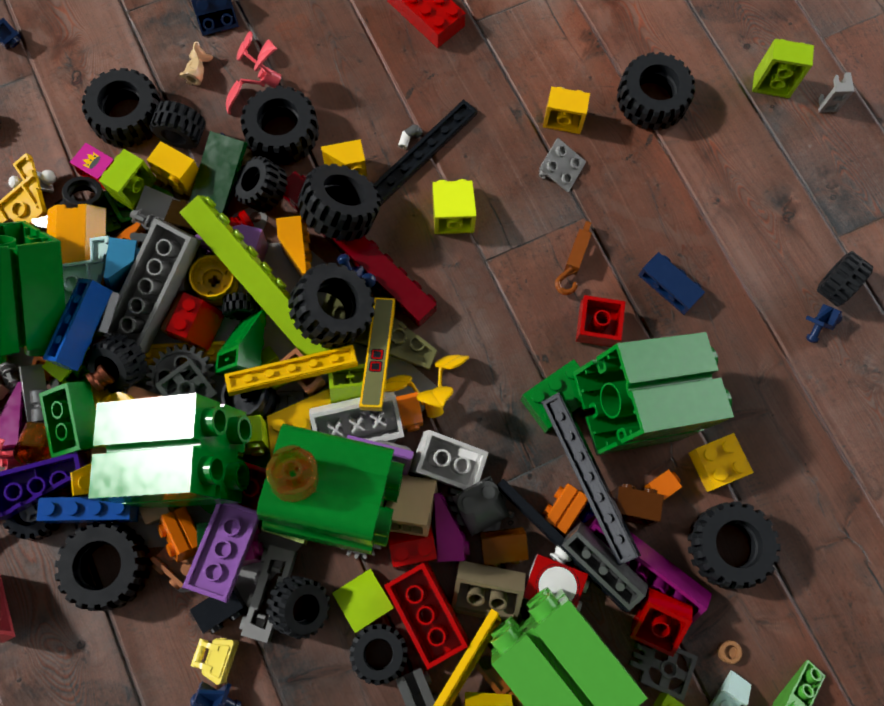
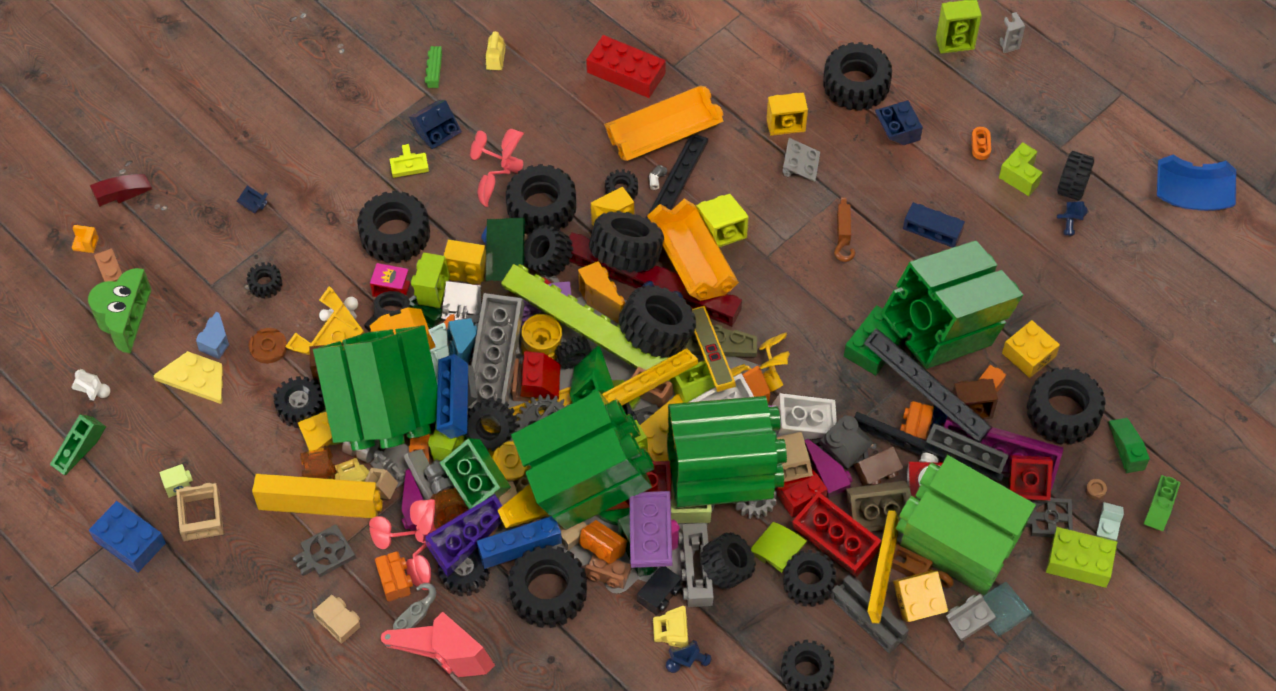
camera: 15 degrees left, 15 degrees down
(100, 378) = (487, 434): copper wheel -> none
(171, 43) = (408, 163): none -> neon yellow hinge
(177, 124) = (451, 222): black tyre -> none
(194, 70) = (441, 178): tan animal -> none
(278, 473) = (698, 426): clear orange brick -> none
(374, 126) = (624, 178): none -> black tyre
(406, 234) = (694, 251): none -> light orange panel
(439, 80) = (663, 122): none -> light orange panel
(600, 321) = (884, 270): red brick -> none
(680, 157) = (900, 123): none -> dark blue slope
(755, 207) = (982, 144): none -> orange plate
(785, 251) = (1019, 170): none -> lime brick
(786, 614) = (1129, 445): none -> green slope

